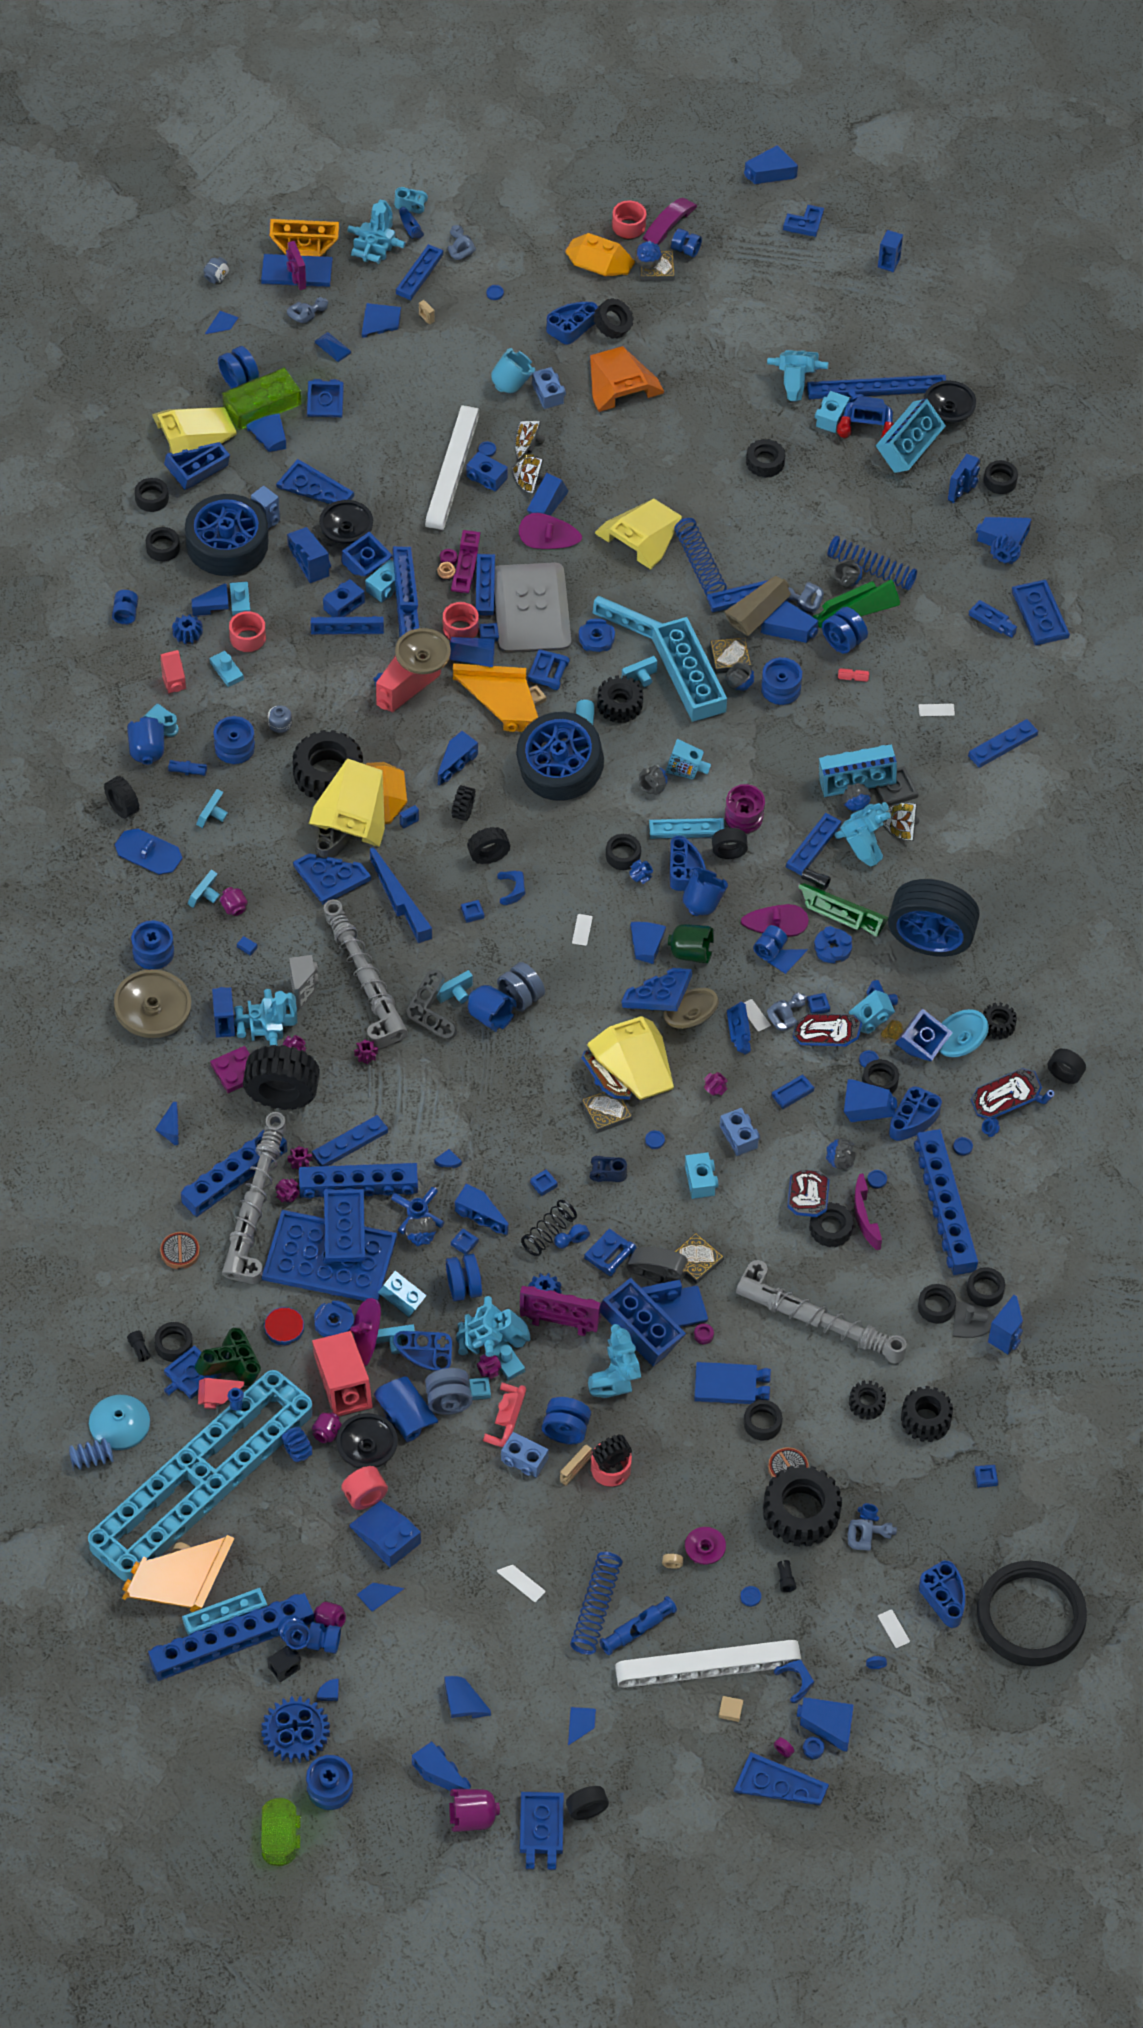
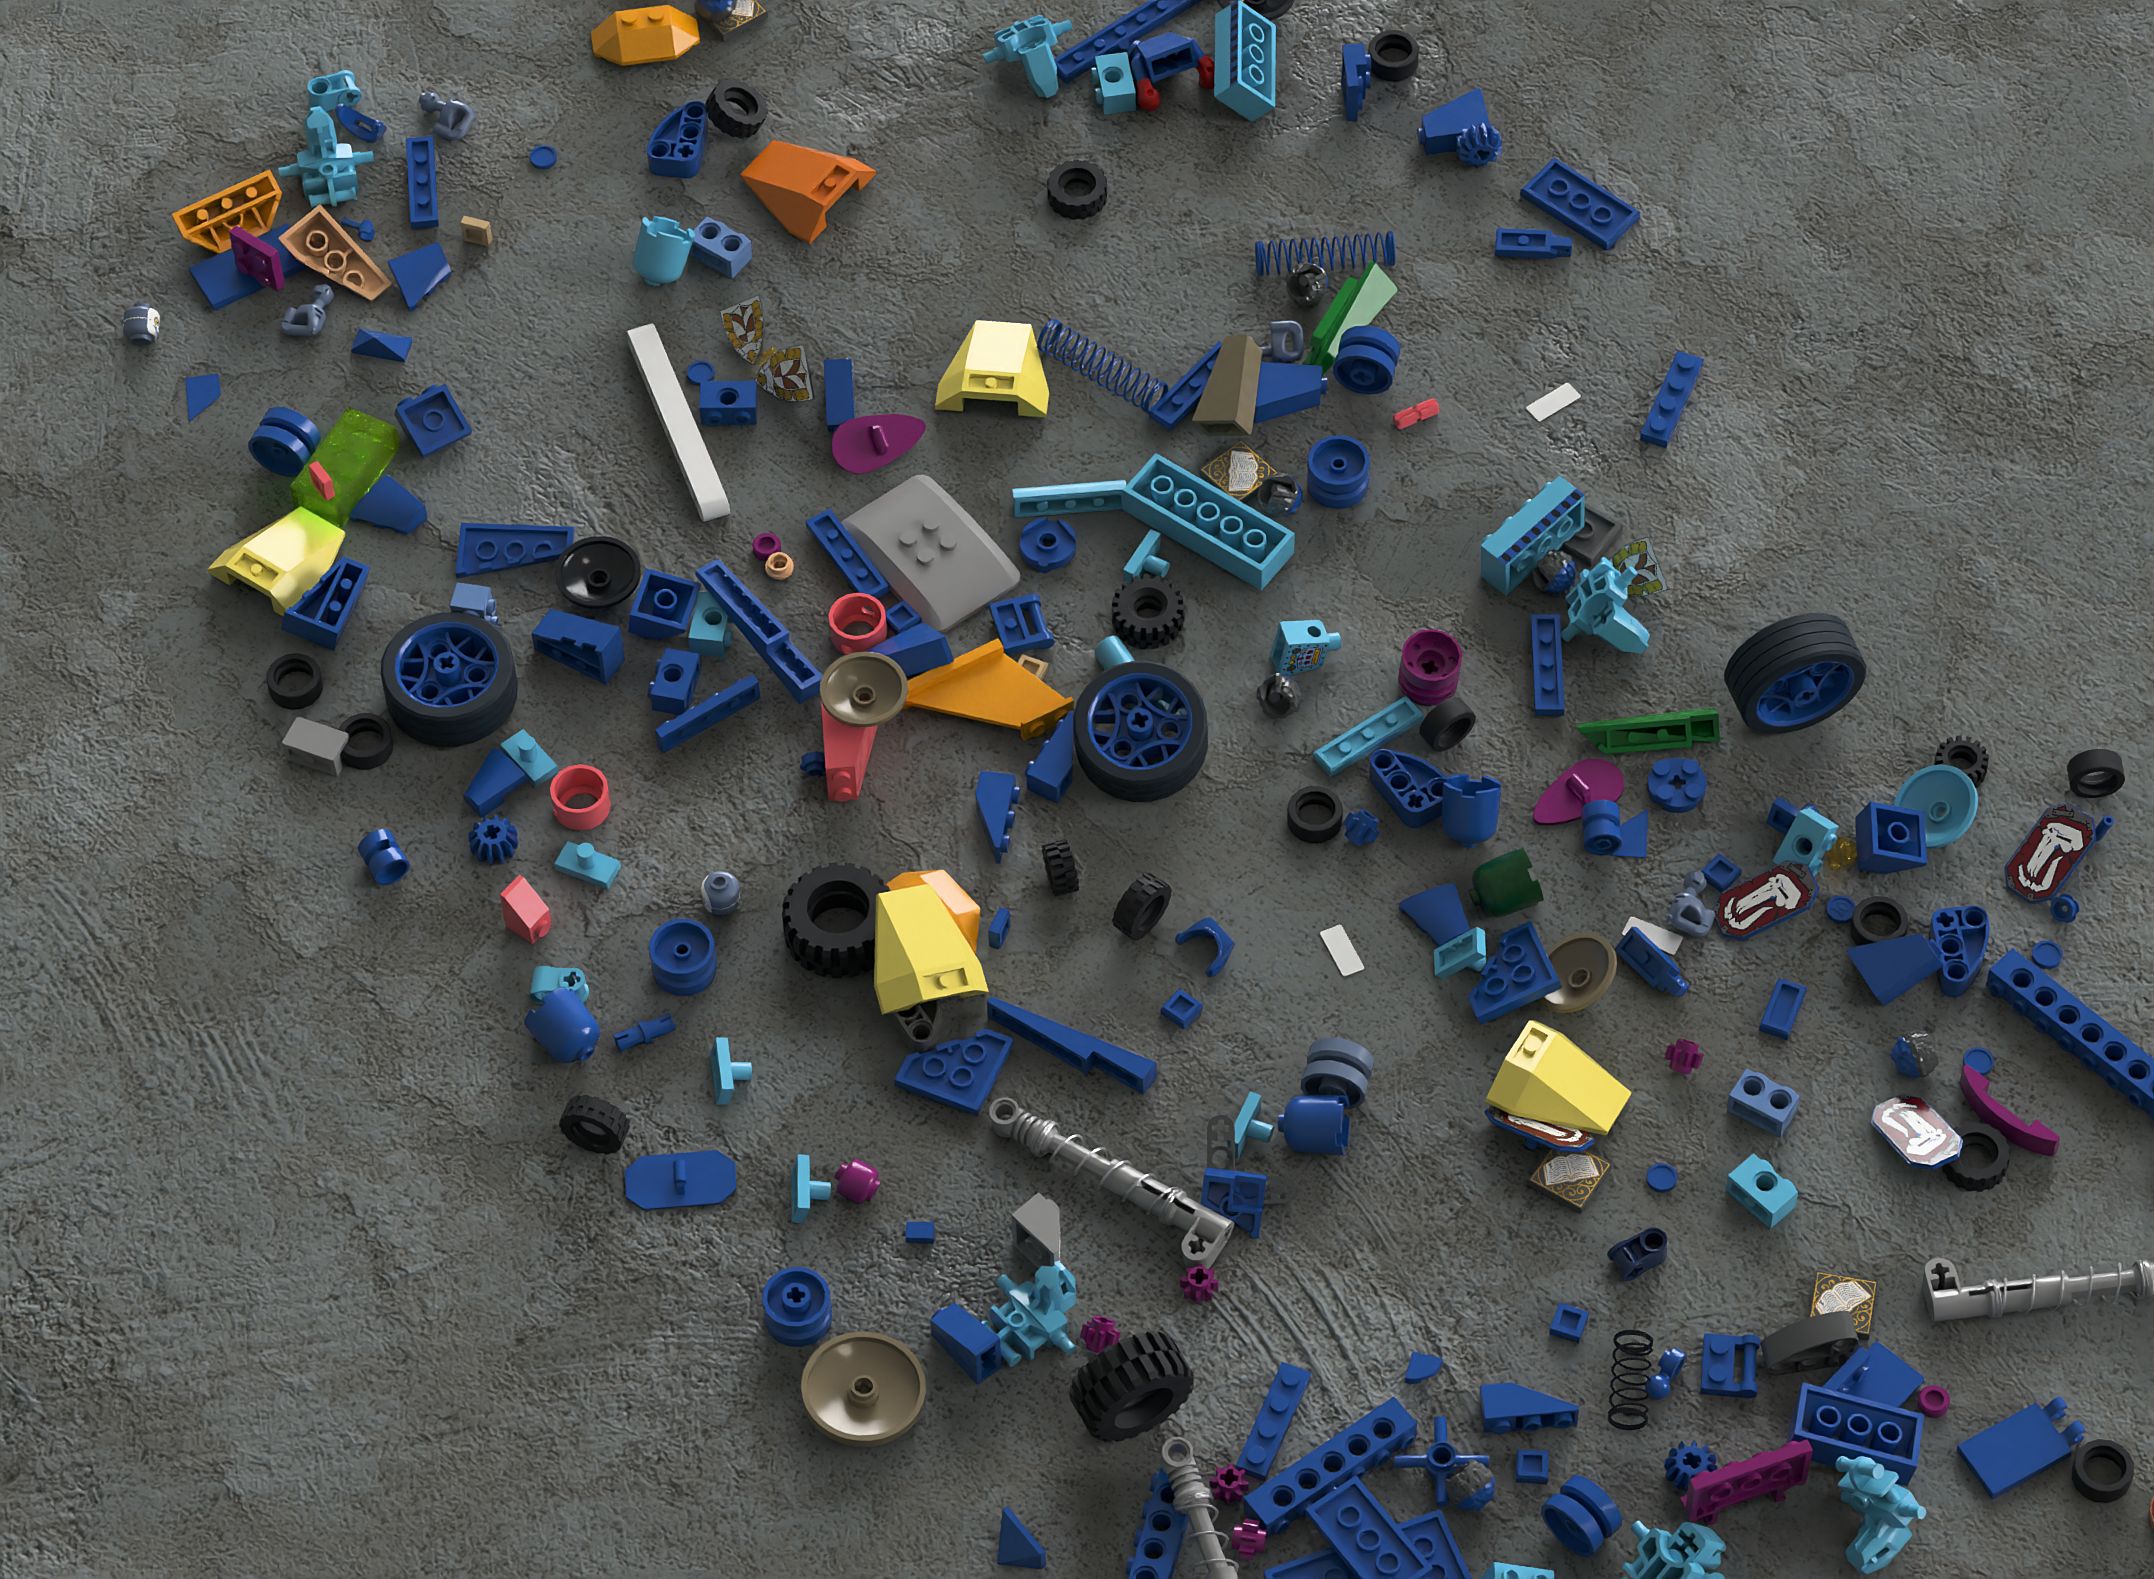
camera: 30 degrees left, 0 degrees up
(134, 531) = (315, 745): none -> light grey panel
(231, 1068) = (1040, 1413): magenta plate -> none
(236, 396) = (321, 481): none -> coral tile
(340, 281) = (330, 251): none -> light nougat wedge
(370, 282) = (364, 229): none -> blue hand
(418, 1018) = (1235, 1196): none -> blue slope
(466, 561) = (797, 540): magenta slope -> none
(502, 752) = (1053, 769): none -> blue slope
(639, 964) = (1462, 952): none -> medium azure tile
(820, 880) = (1592, 708): black pin -> none

